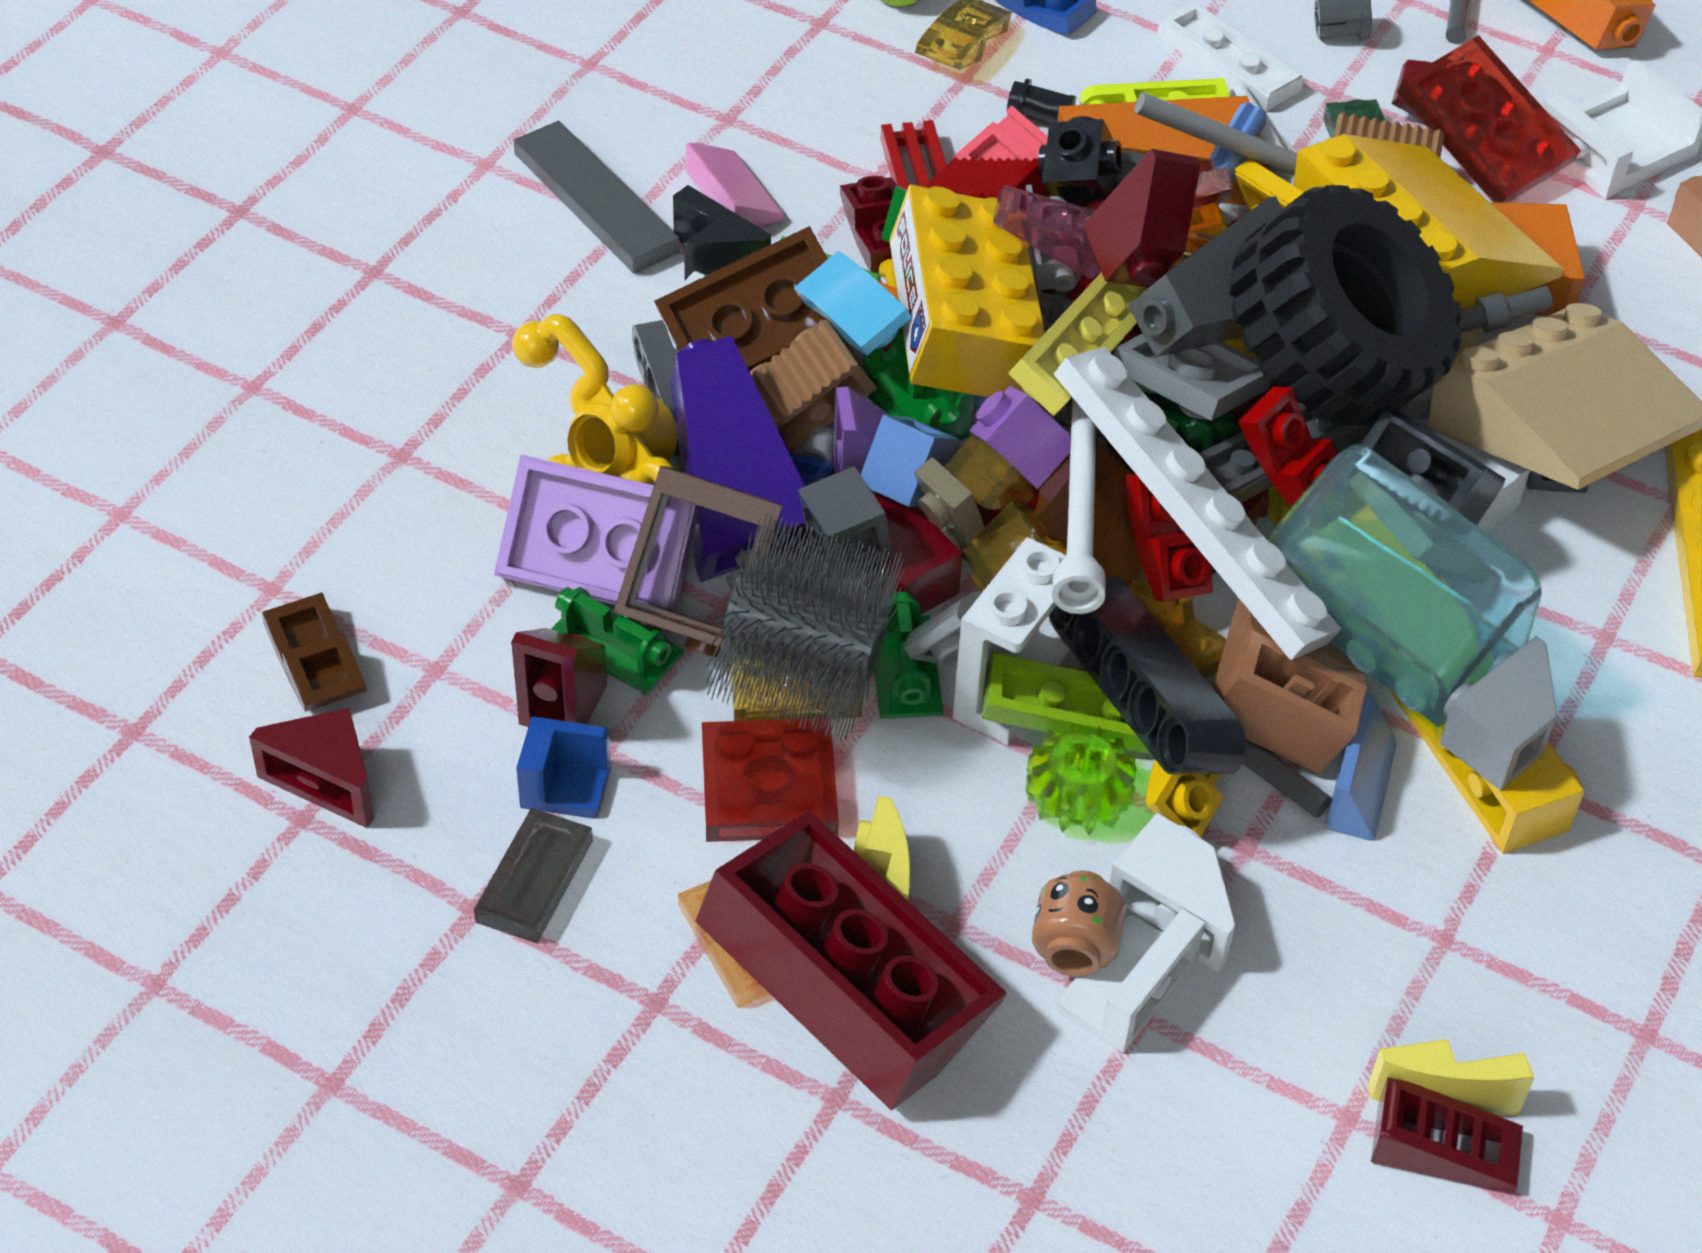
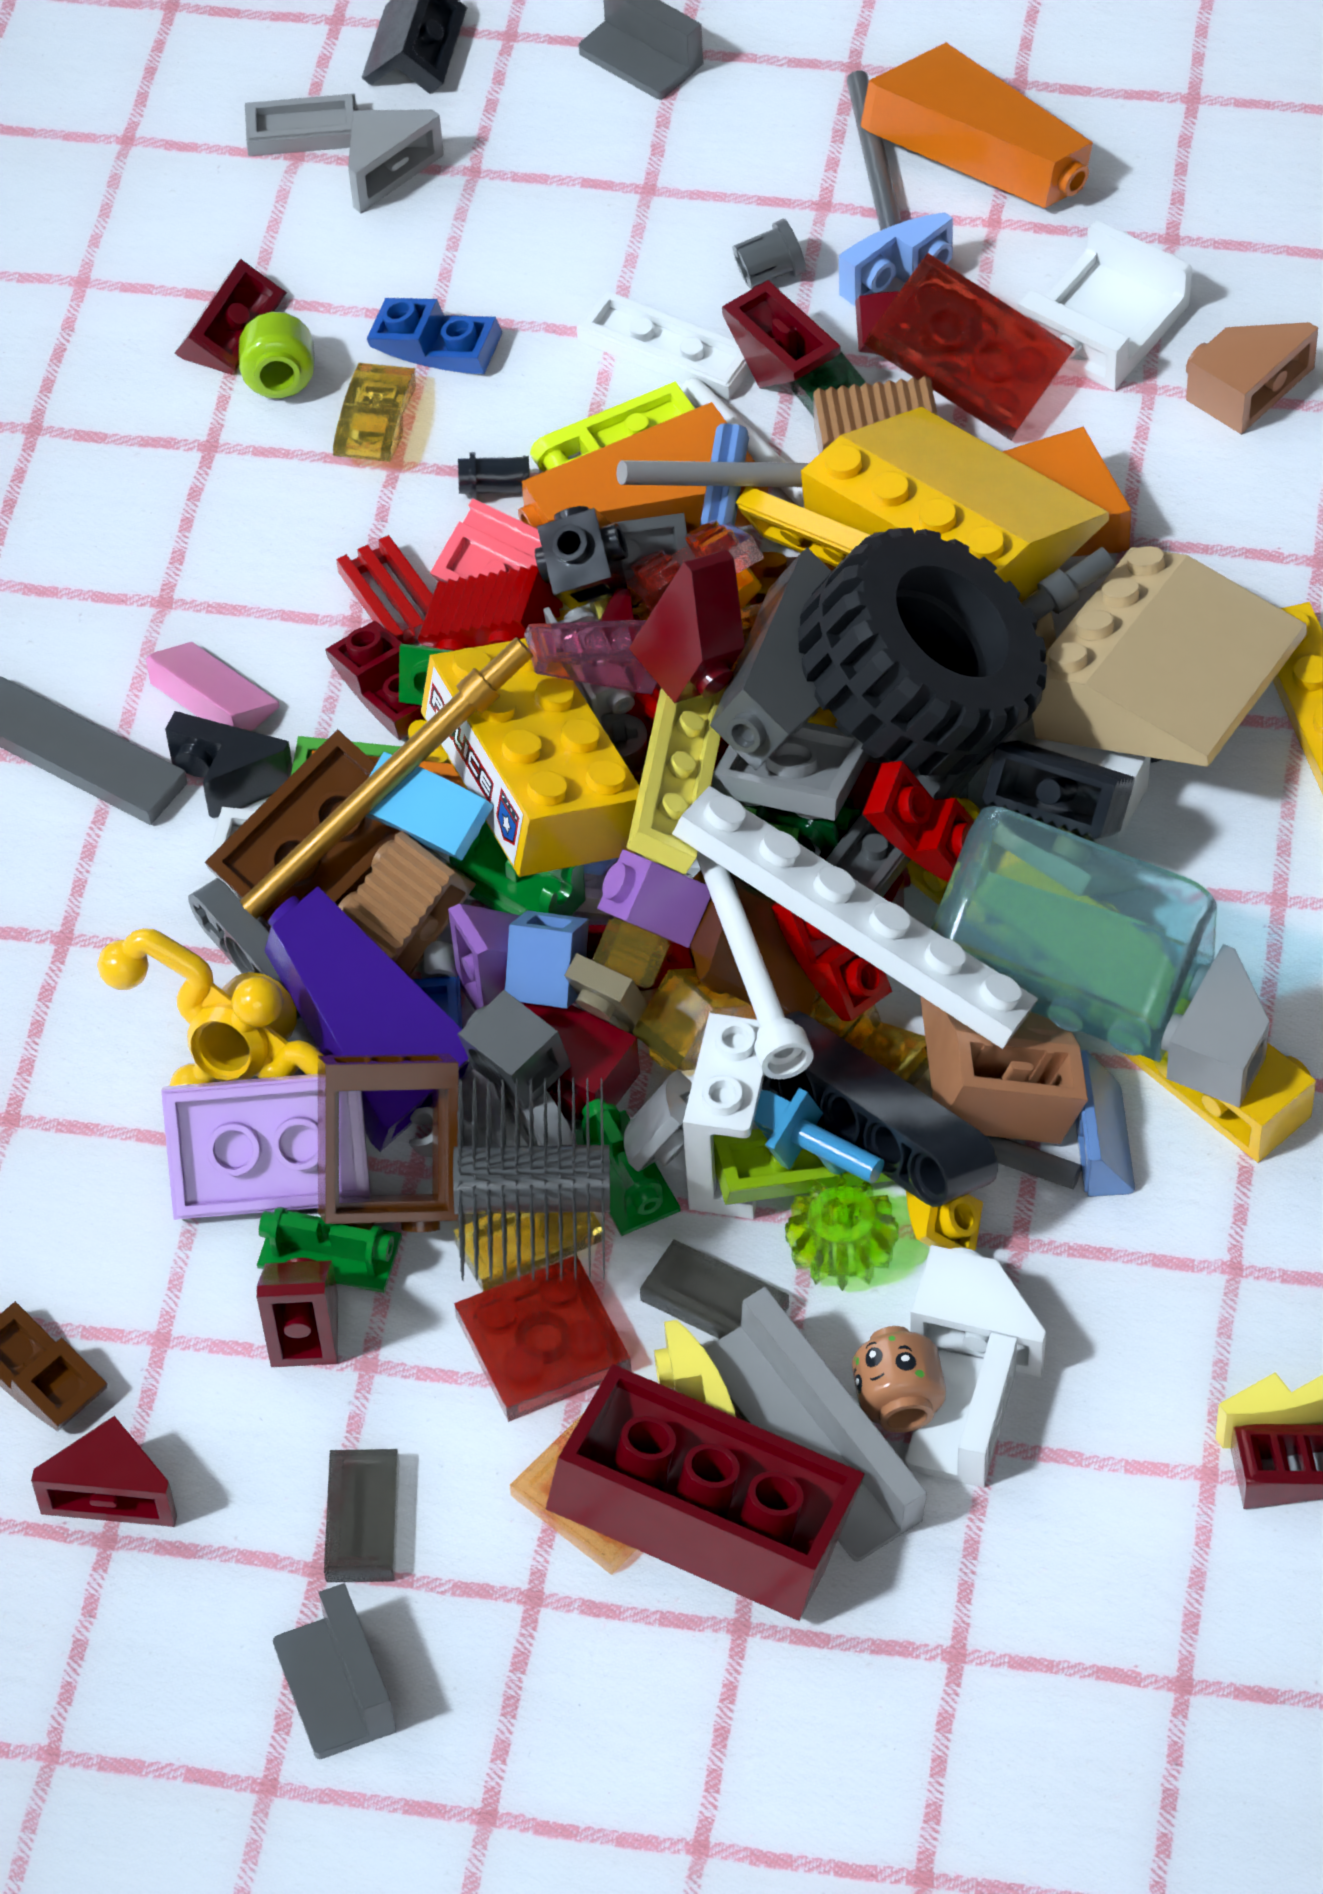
camera: 15 degrees left, 5 degrees up
(438, 1008) = (335, 1678): none -> dark grey panel
(564, 767) = (344, 1398): blue panel -> none
(932, 215) = (476, 692): none -> pearl gold bar
(941, 798) = (702, 1290): none -> clear smoke tile
(971, 900) = (791, 1392): none -> light grey panel
(1070, 665) = (794, 1126): none -> dark azure arm
(1323, 66) = (776, 336): none -> dark red slope
(1437, 36) = (893, 253): none -> light blue slope

